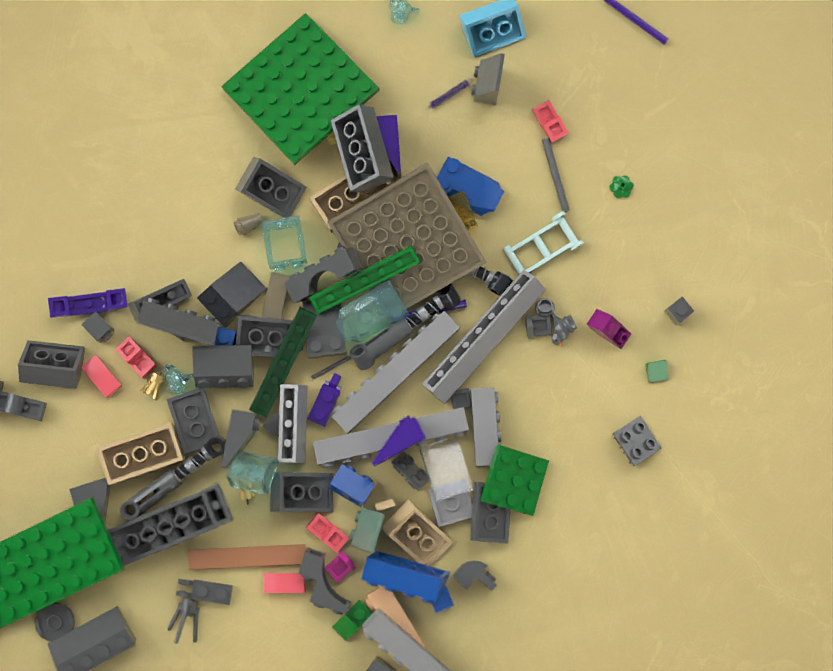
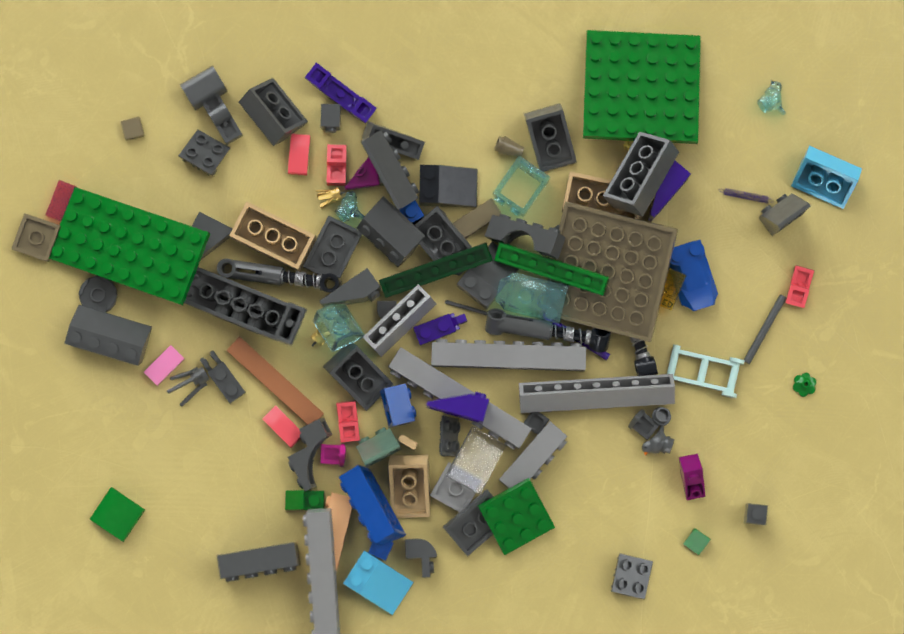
camera: 50 degrees right, 0 degrees up
(30, 443) = (204, 152): none -> dark grey hinge
(154, 624) = (164, 365): none -> bright pink tile
(165, 346) = (364, 177): none -> magenta tile
(463, 626) = (378, 582): none -> medium azure slope

